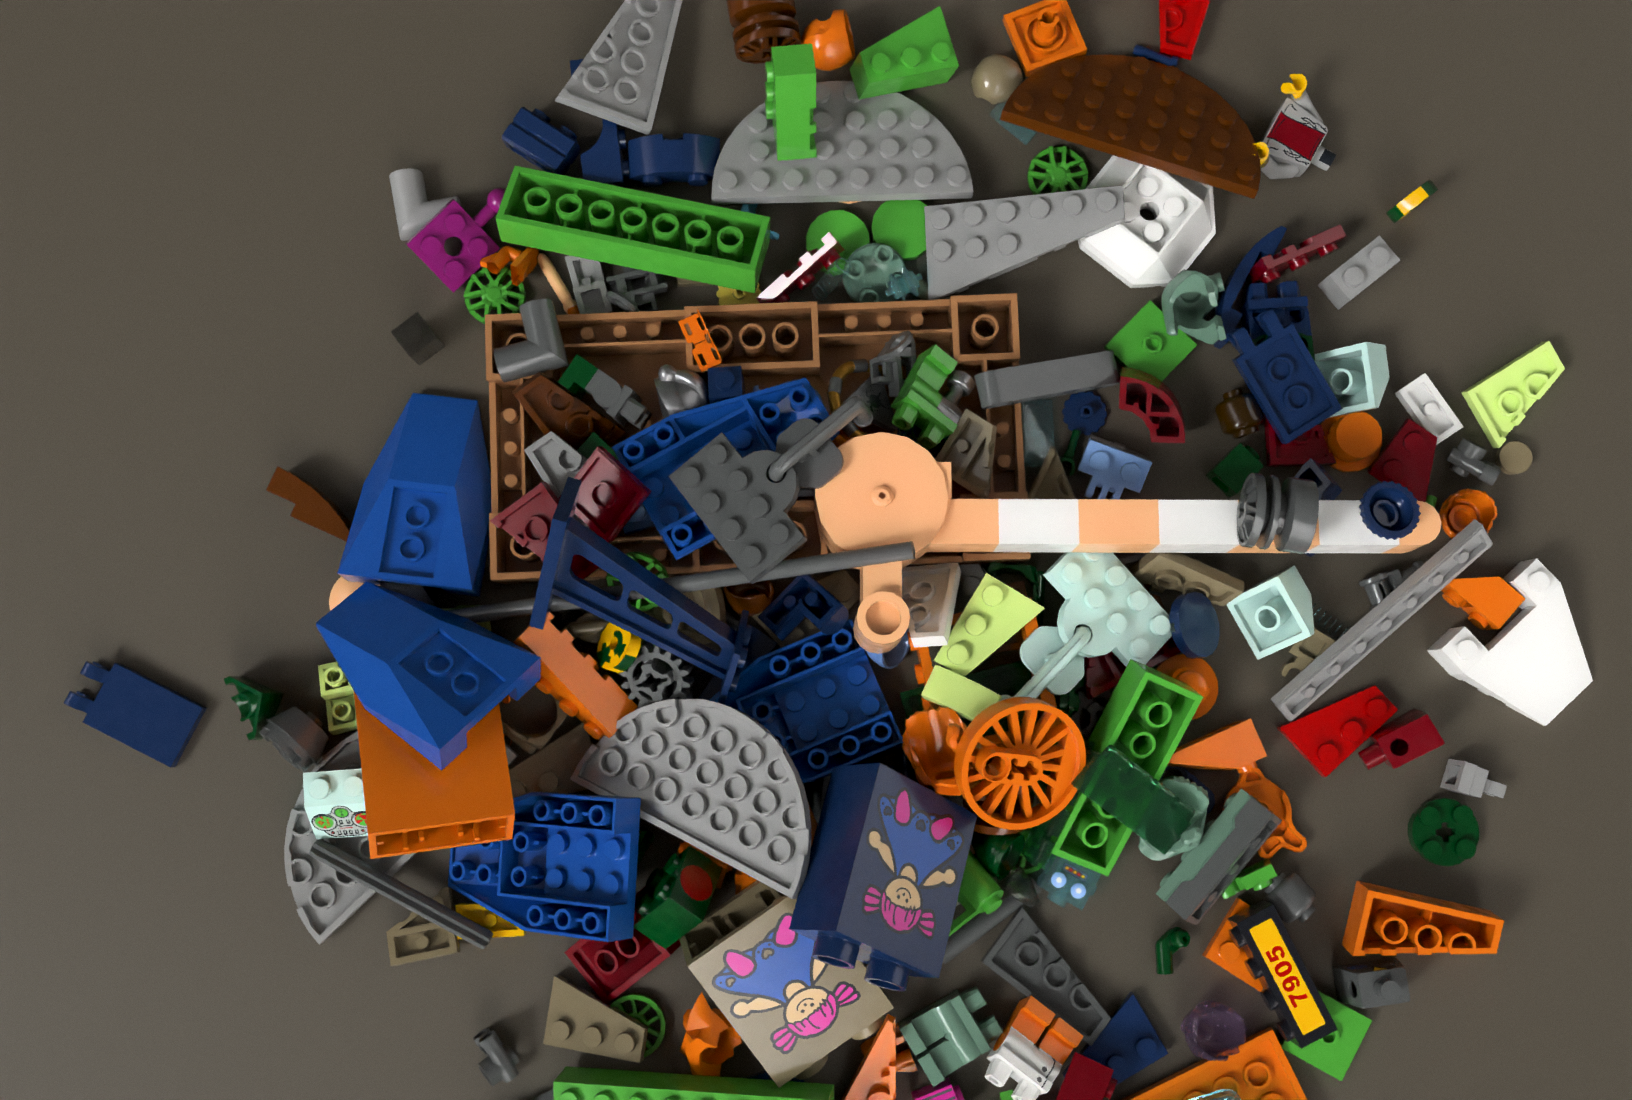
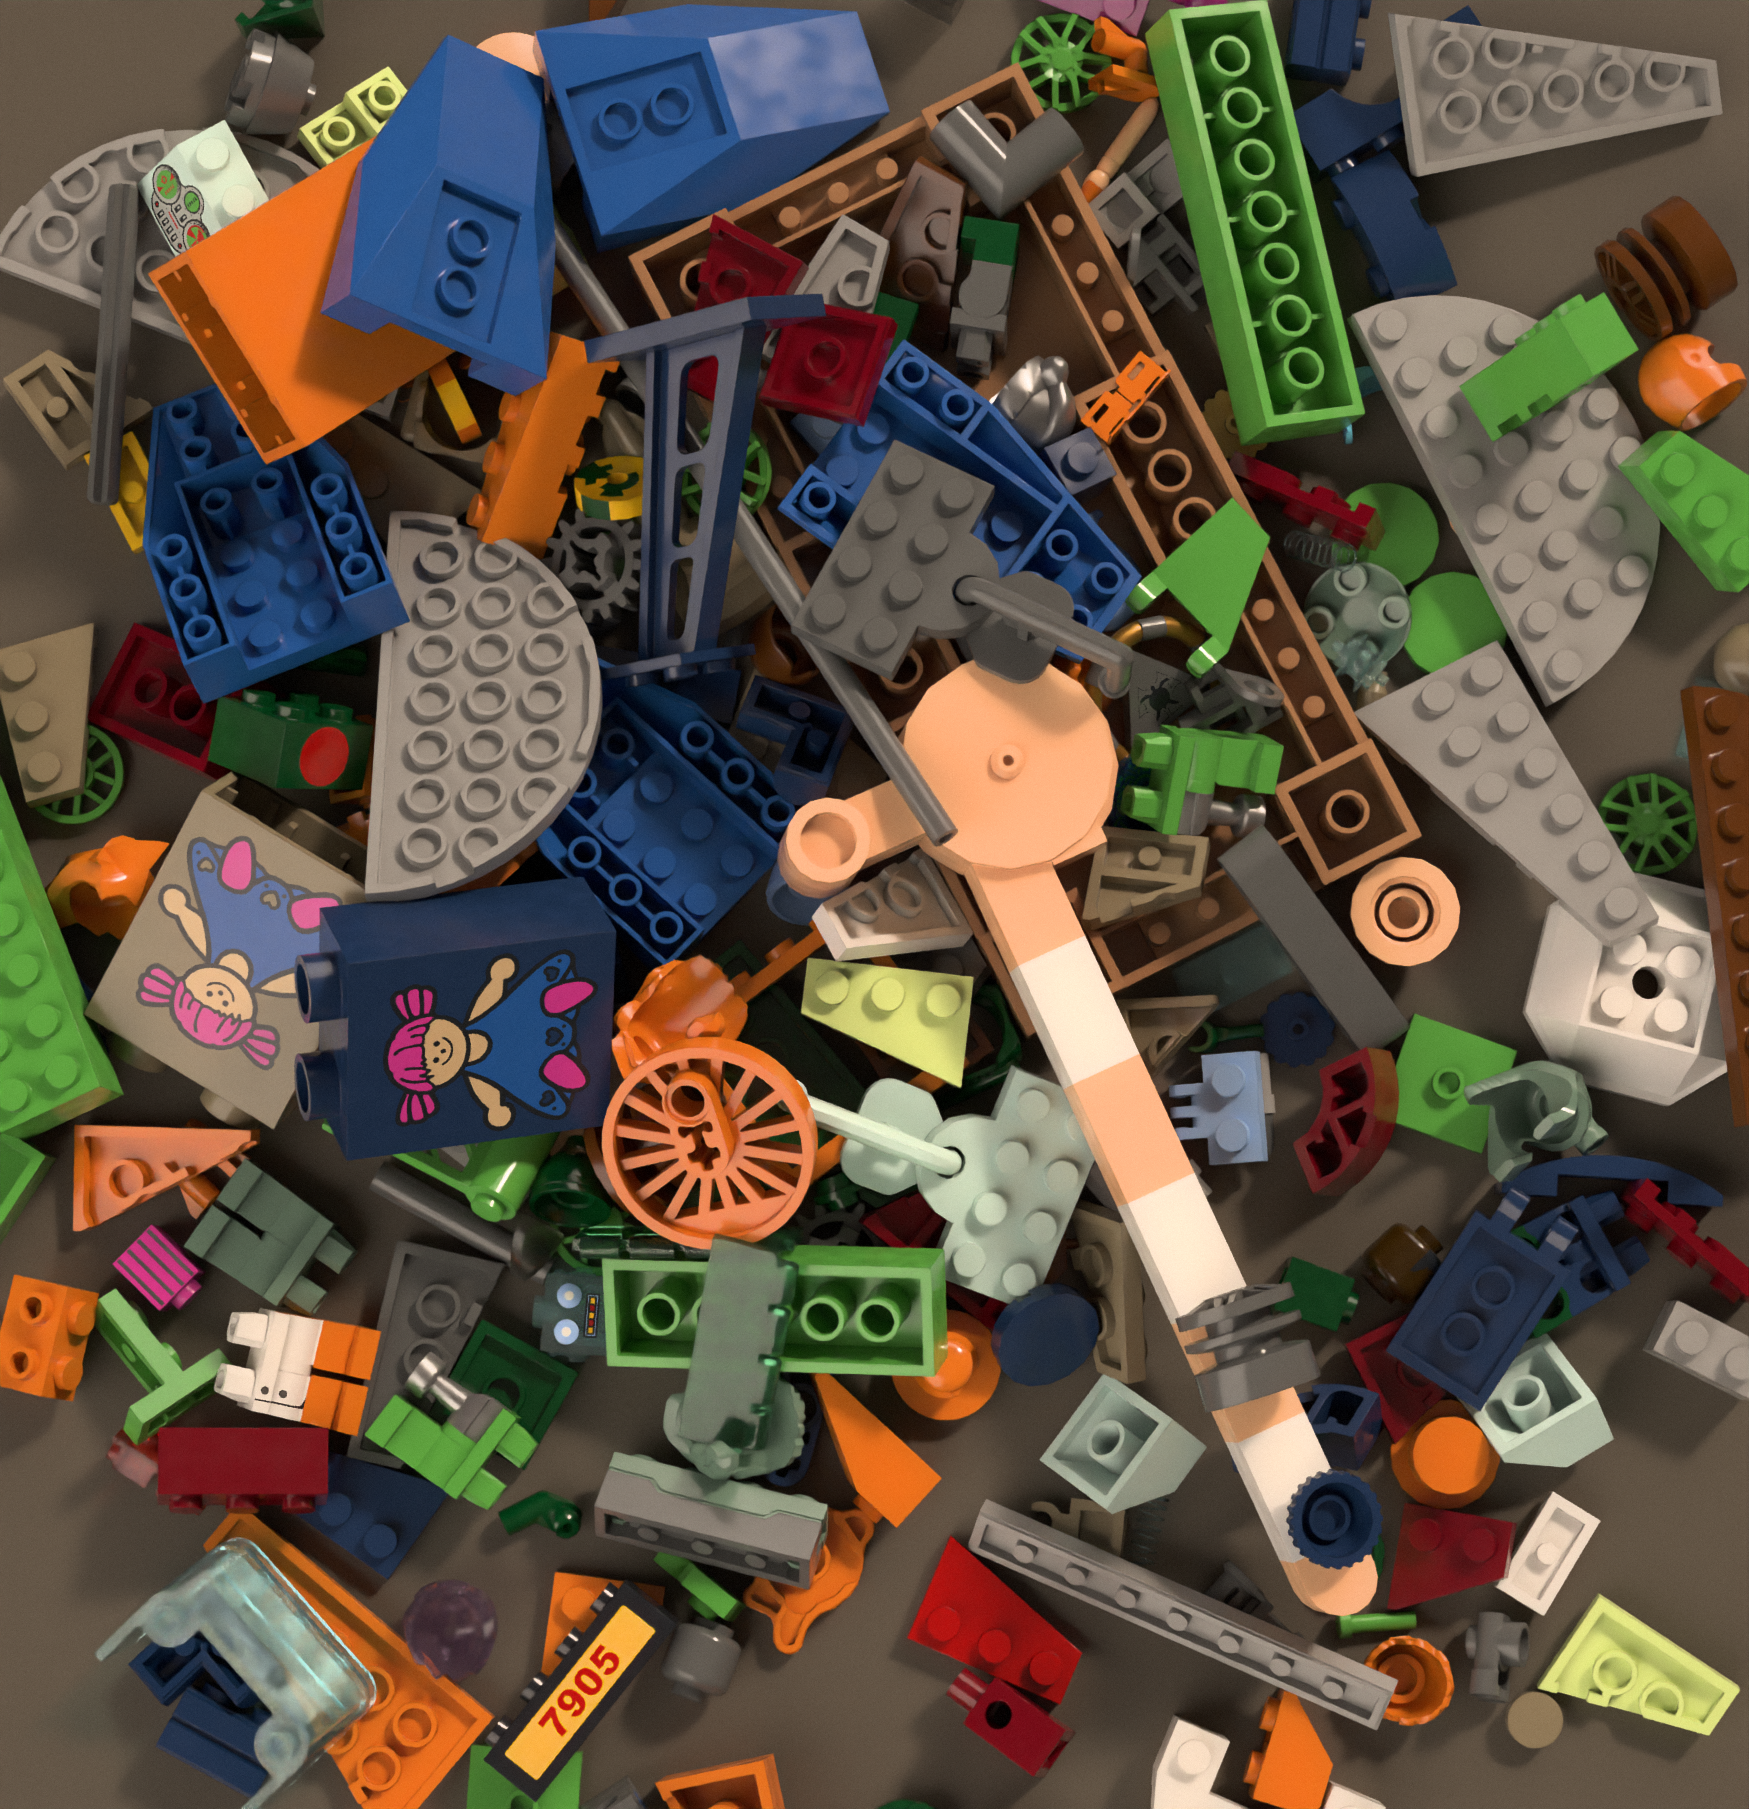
camera: 60 degrees right, 0 degrees up
(526, 714) = (454, 401): none -> piece
(823, 341) = (1209, 579): none -> bright green flag
(958, 693) = (775, 1011): yellowish green slope -> none
(1051, 323) = (1404, 911): none -> light nougat piece
(1094, 940) = (515, 1376): none -> dark green plate
(1118, 983) = (463, 1446): none -> bright green hips

